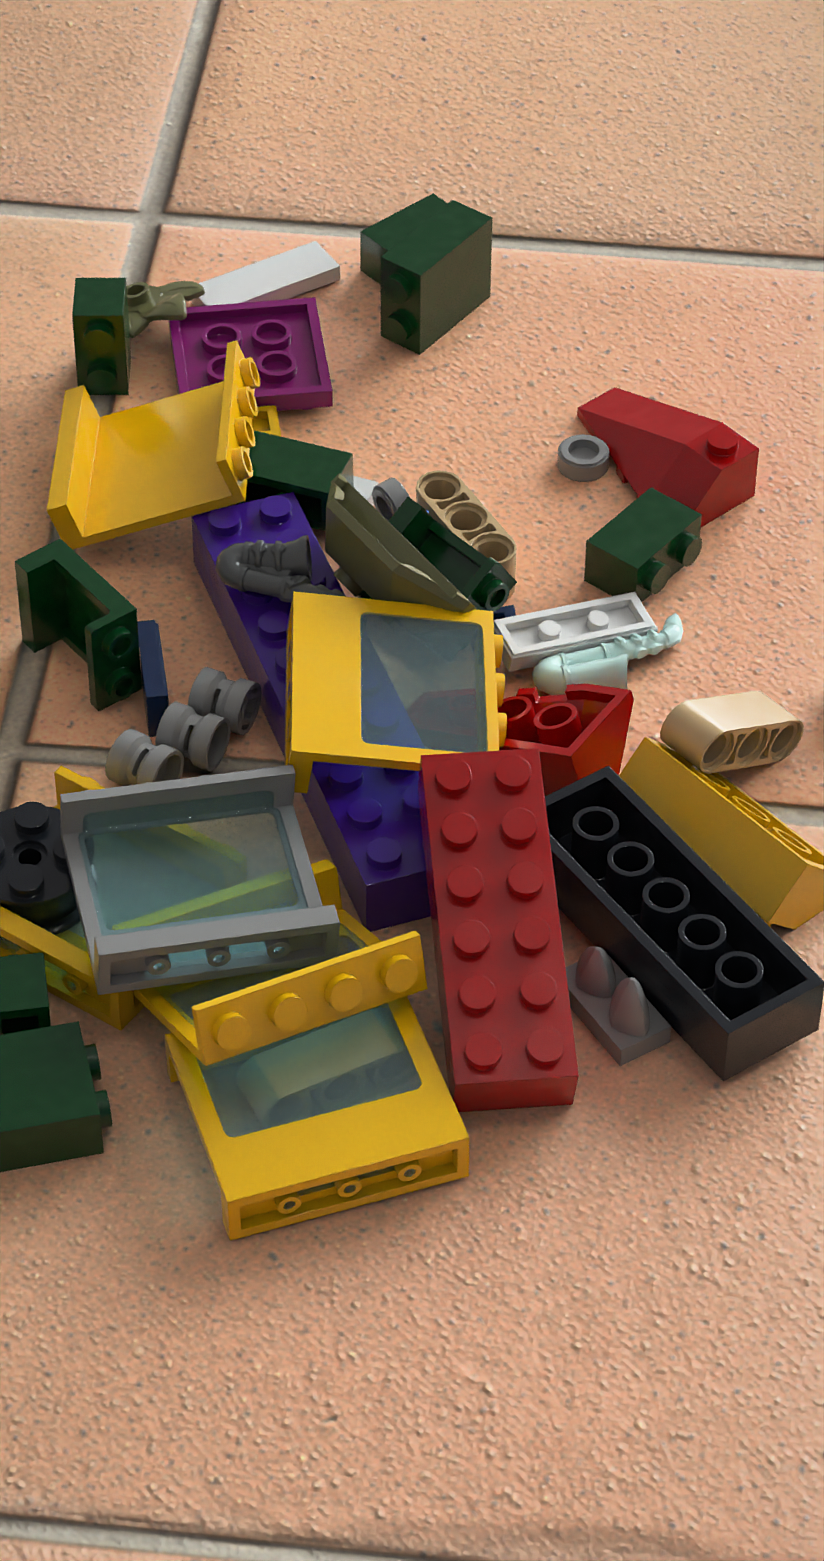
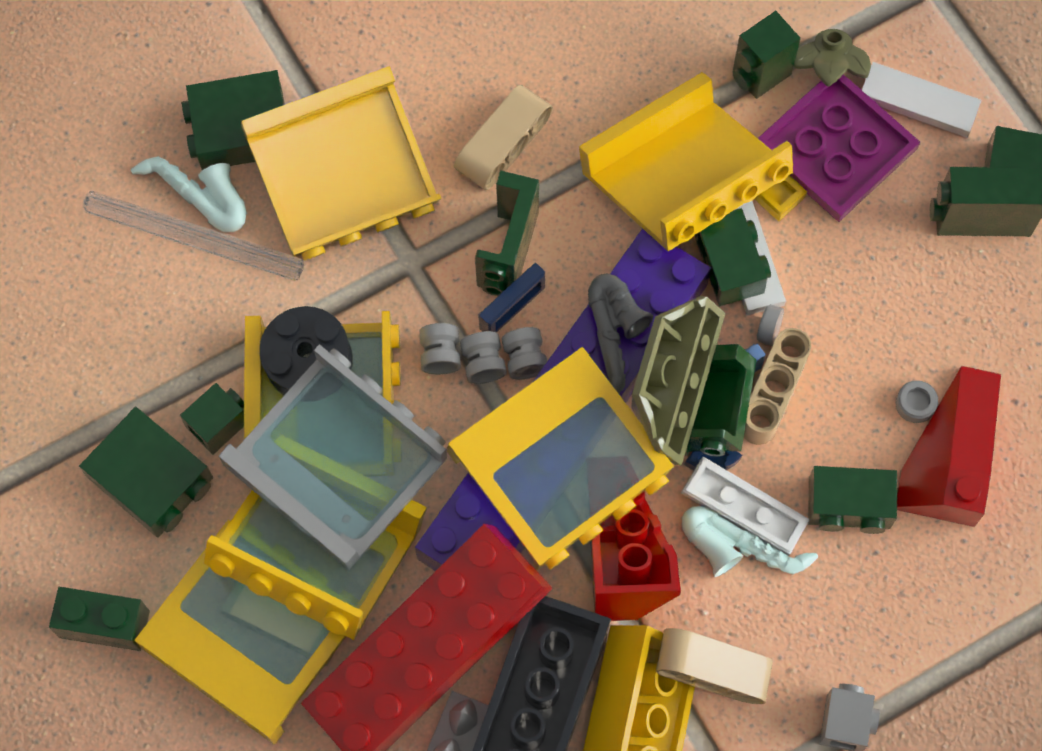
camera: 55 degrees right, 25 degrees up
(159, 1240) = (98, 618): none -> dark green brick

